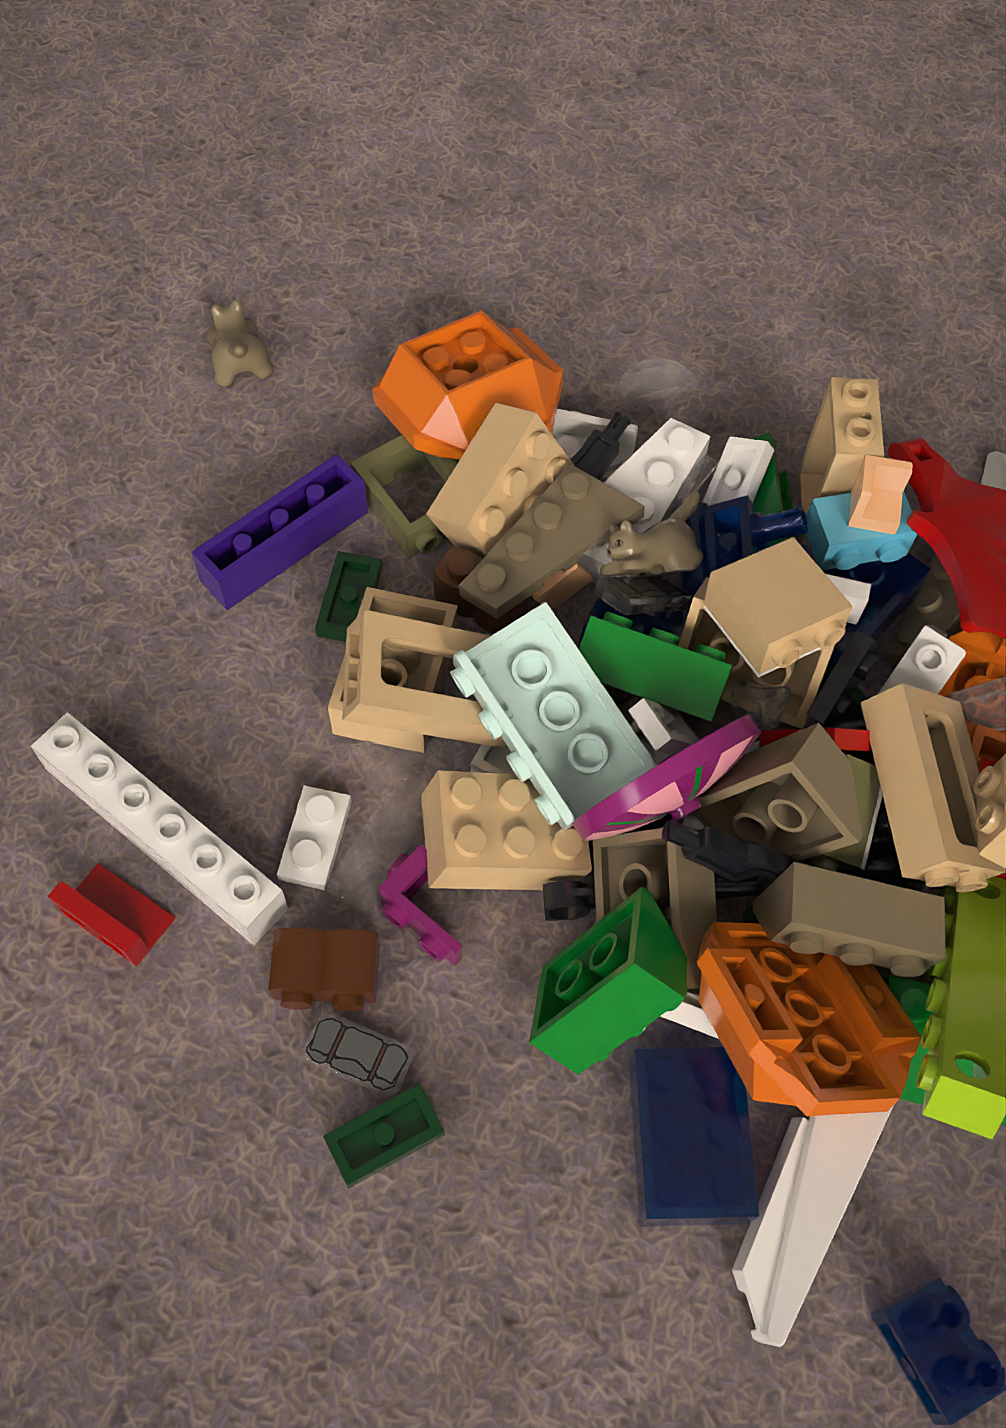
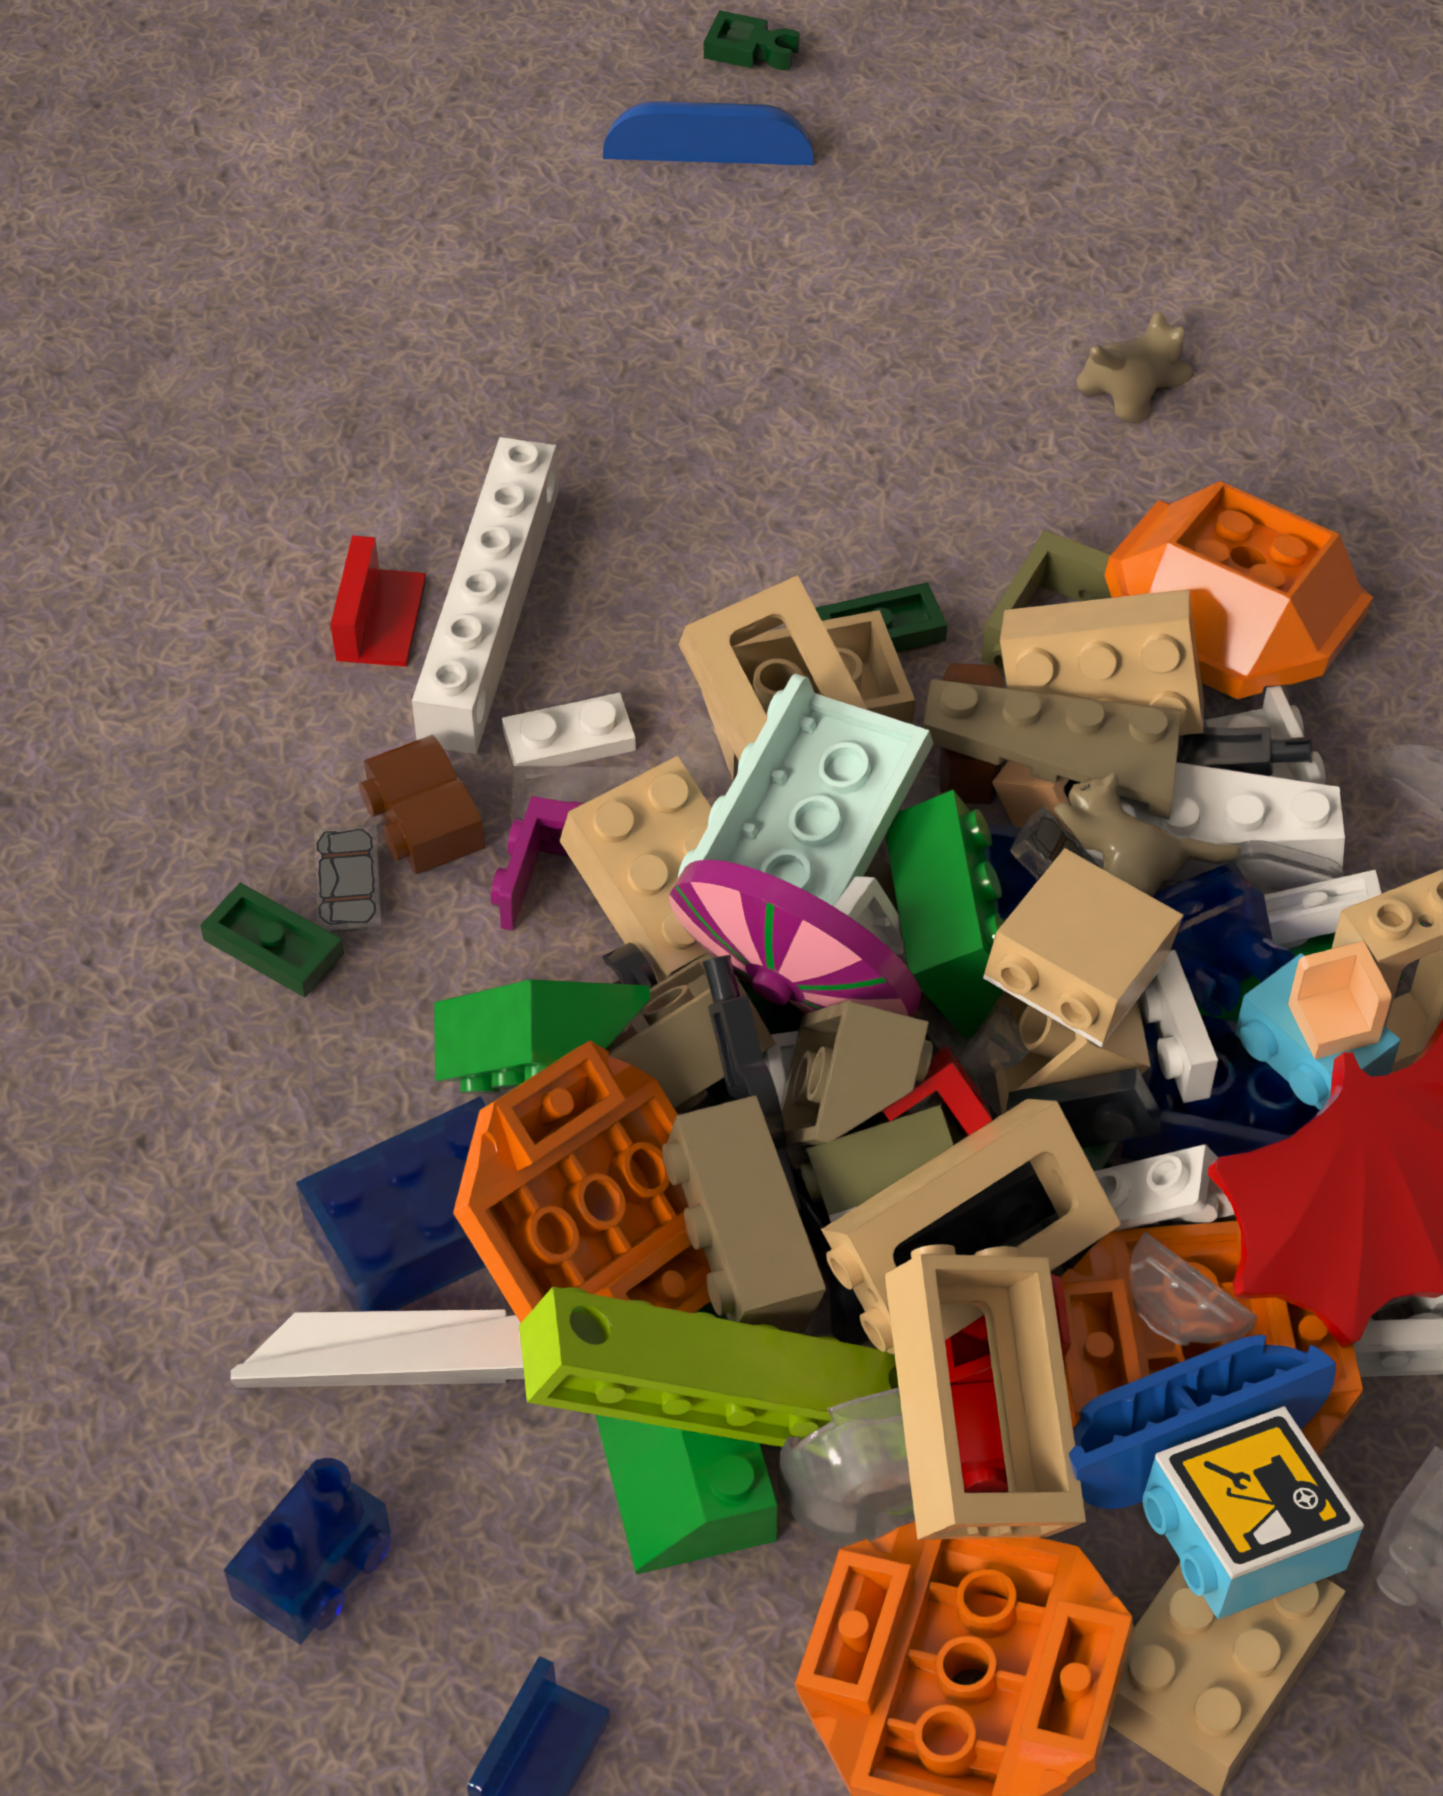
camera: 65 degrees right, 10 degrees down
(281, 531) = (910, 518): dark purple brick -> none

